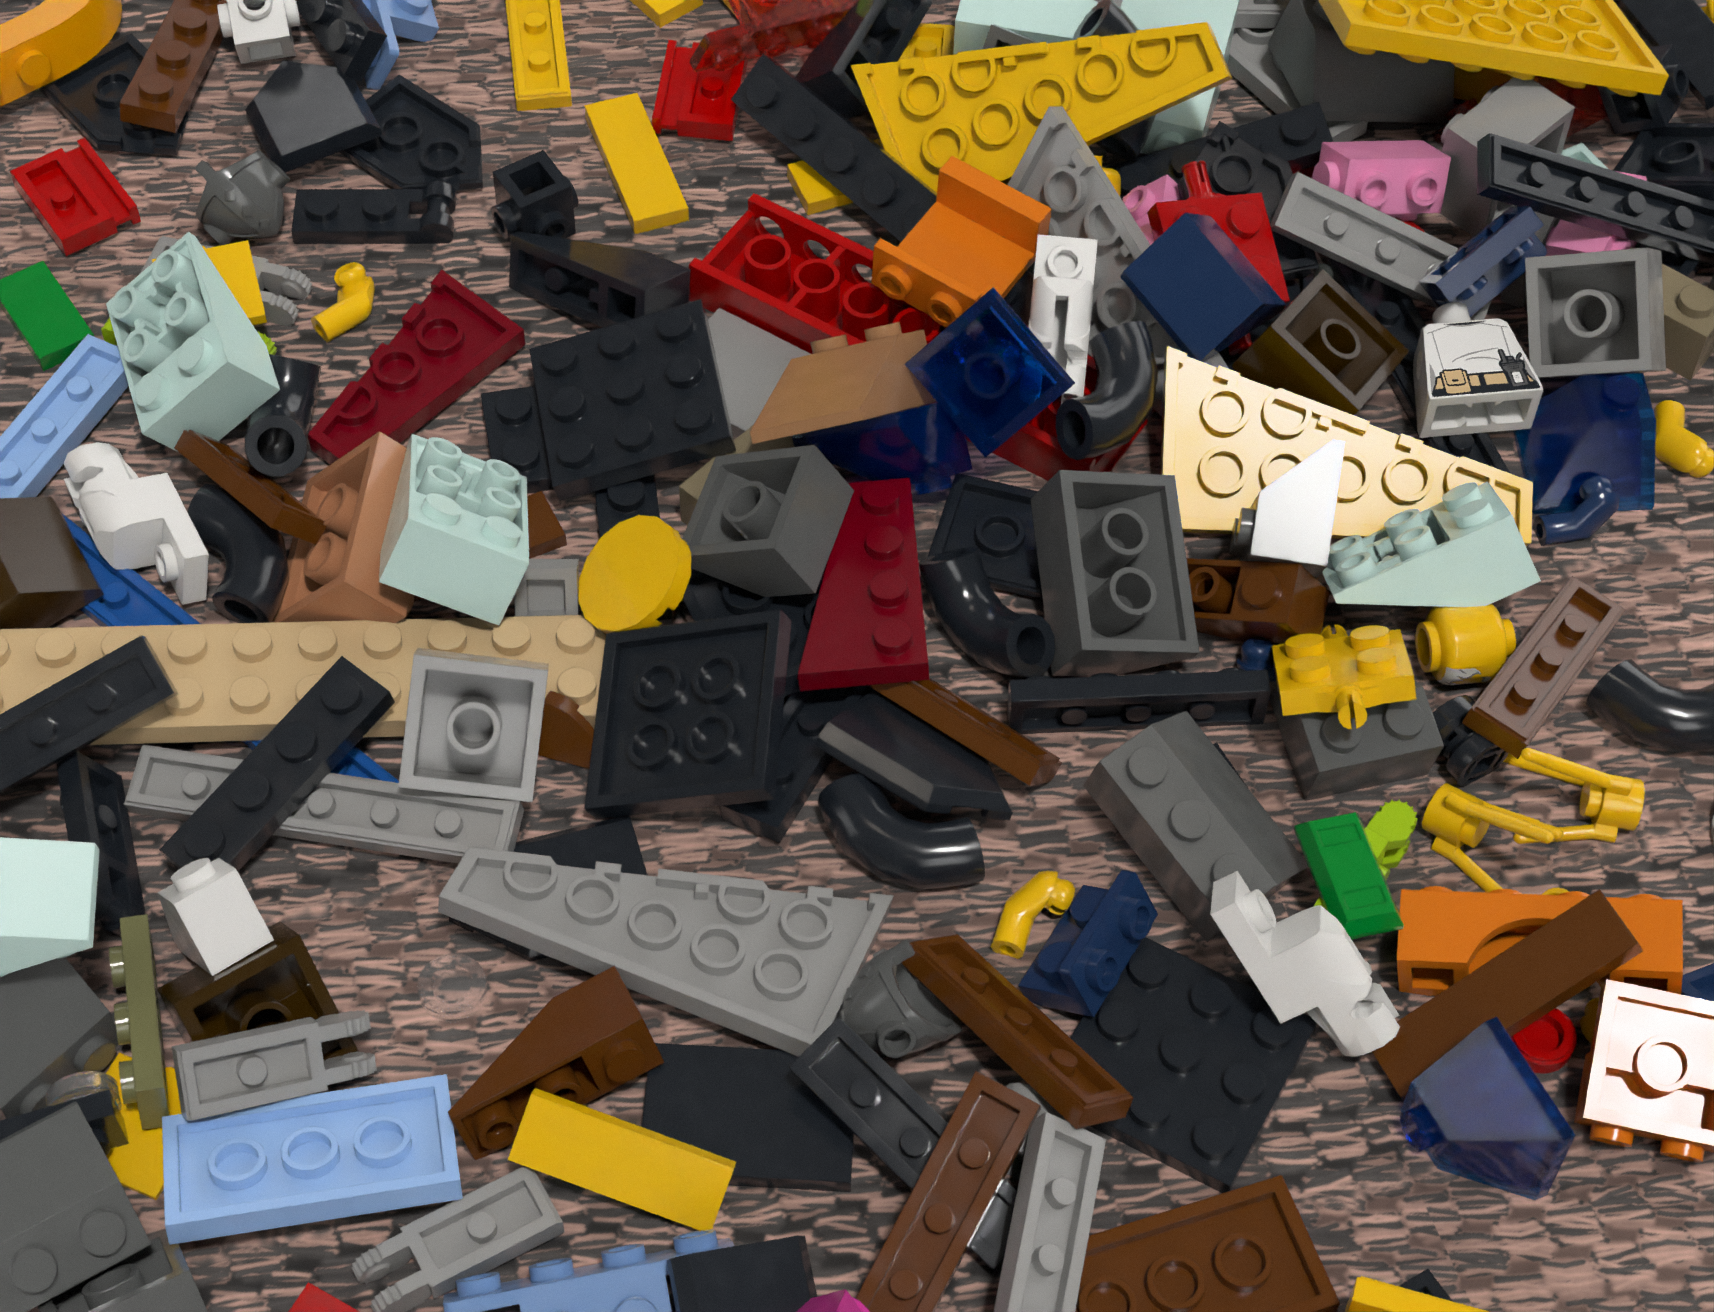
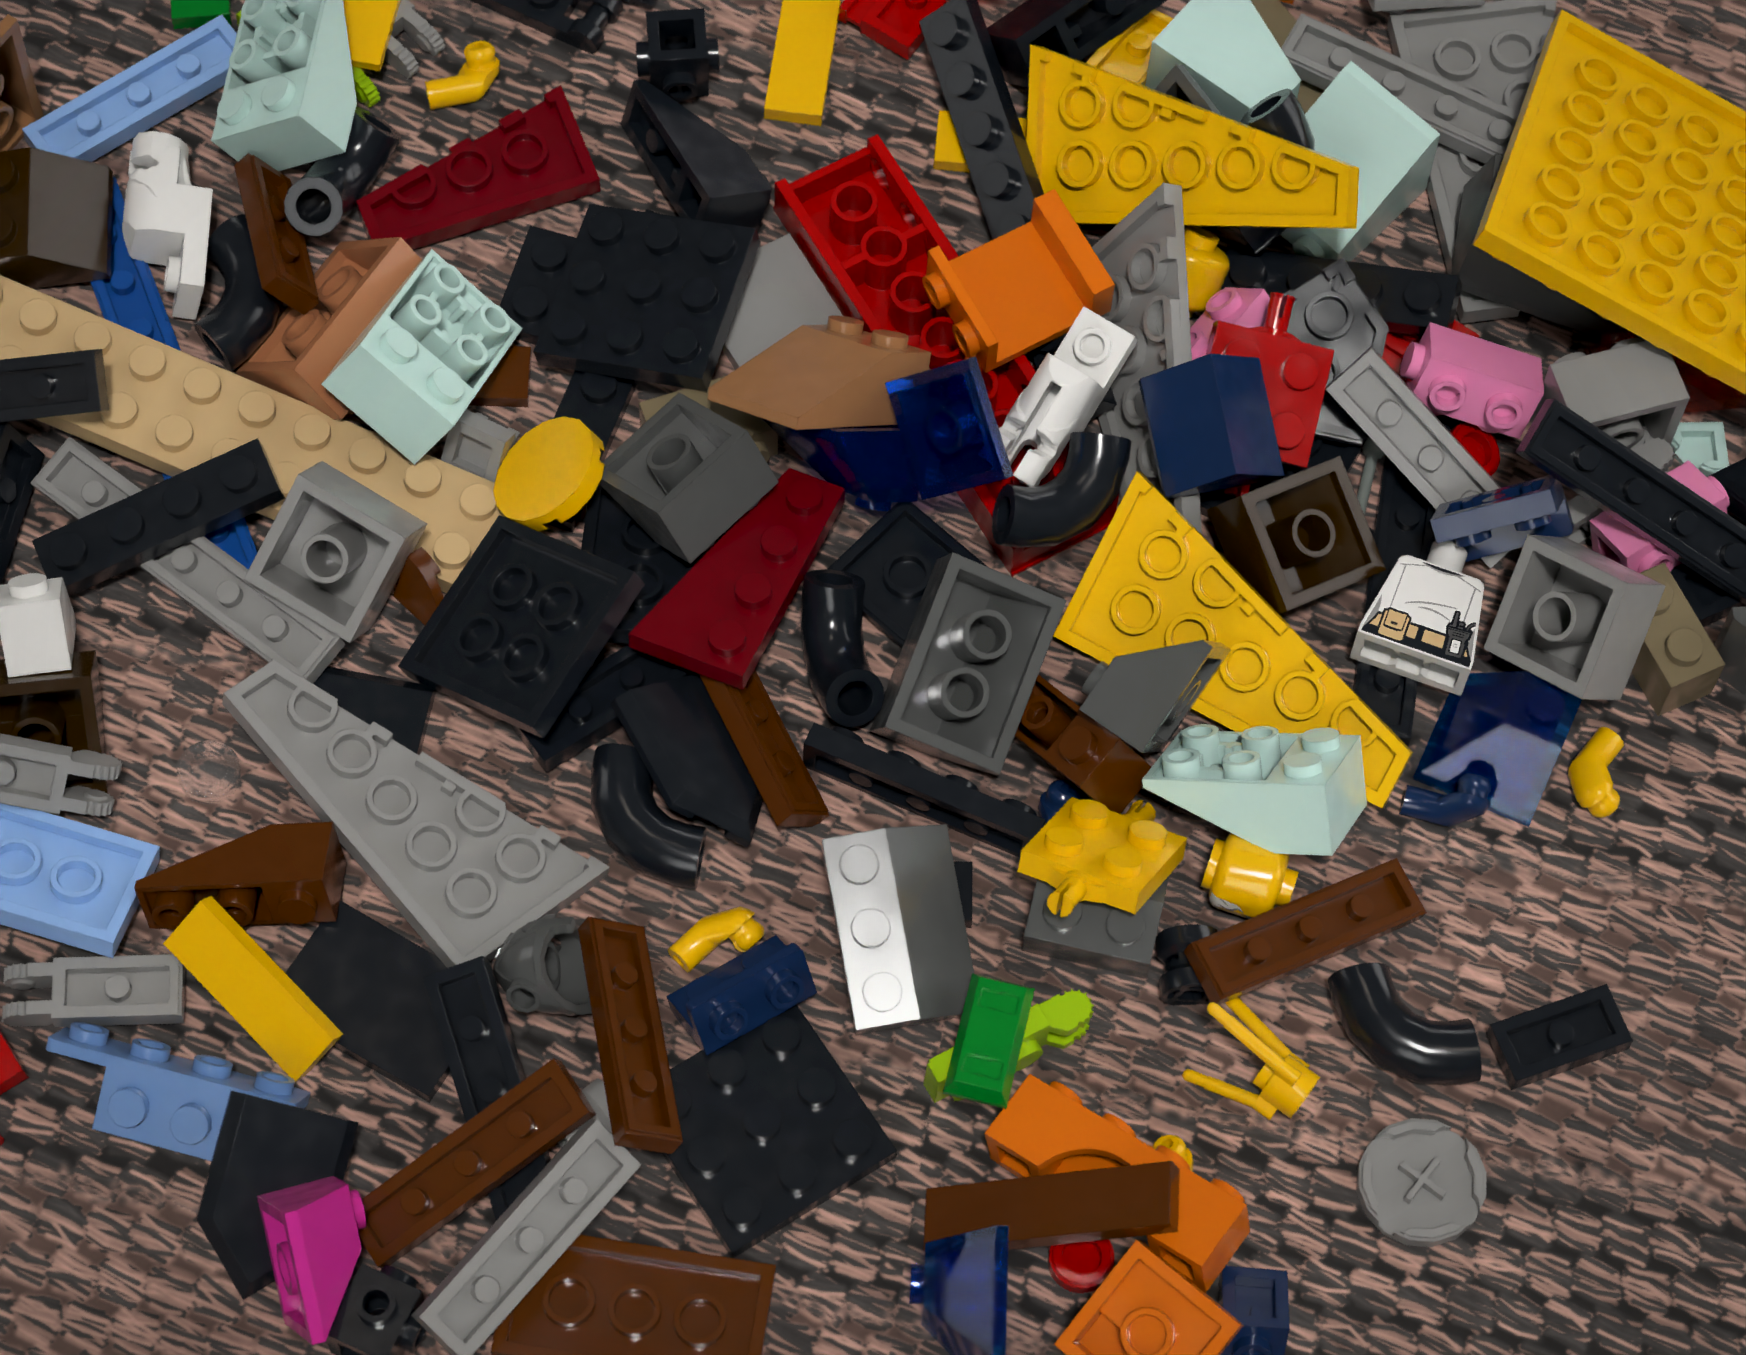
camera: 25 degrees right, 10 degrees up
(1305, 967) = (895, 1099): white plate -> none
(1464, 819) = (1140, 1036): yellow plant -> none

